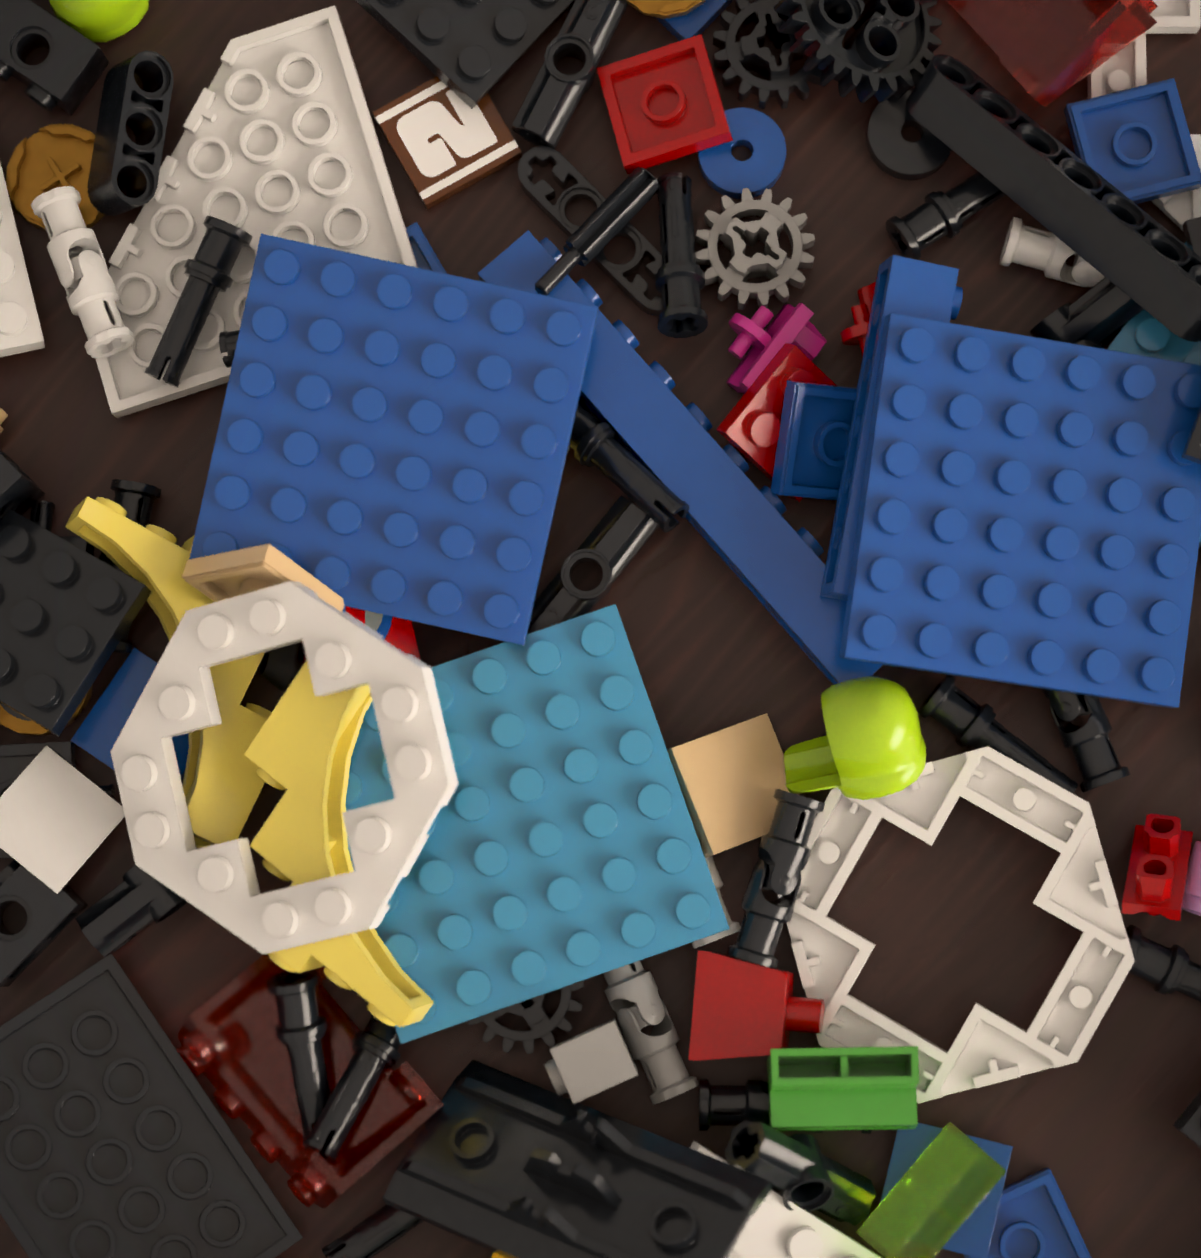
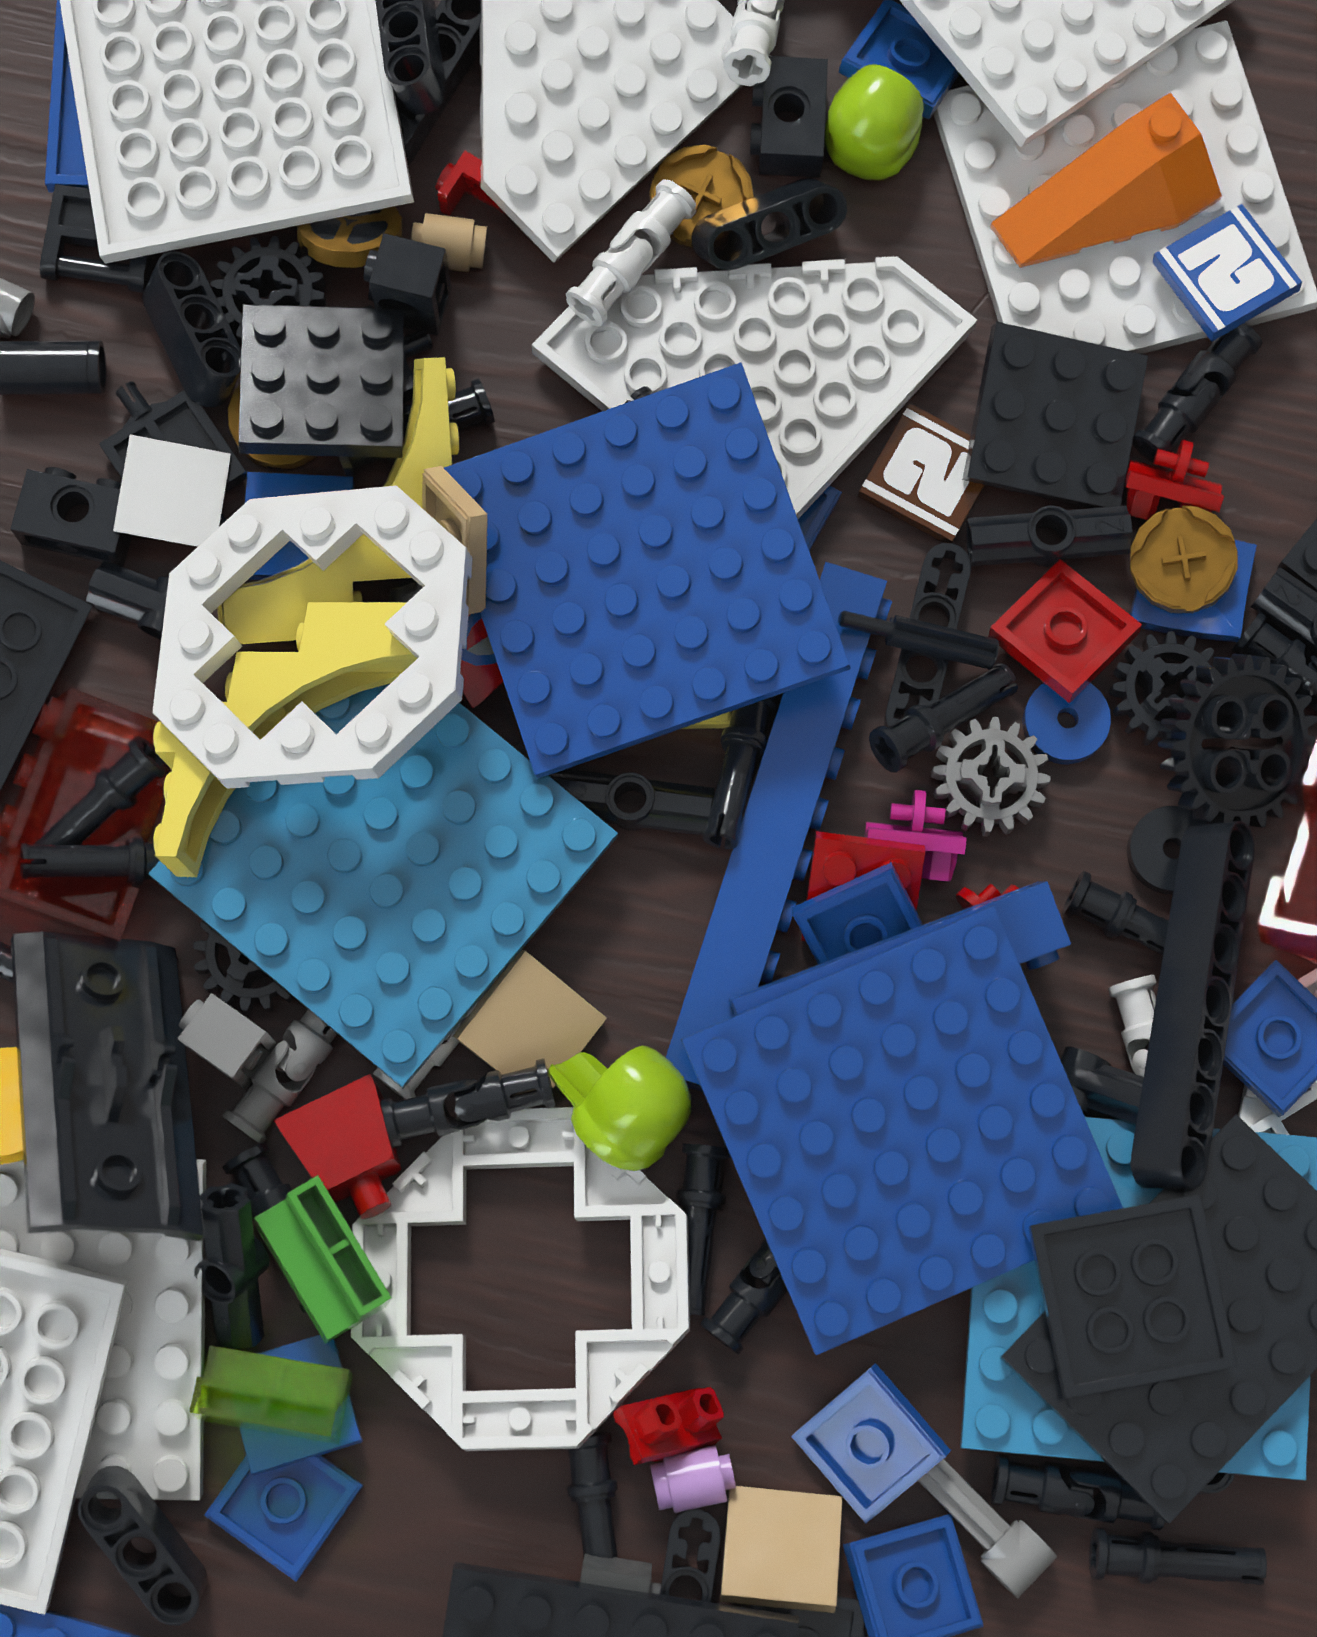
camera: 50 degrees right, 5 degrees down
(207, 276) = (687, 350): black pin -> none

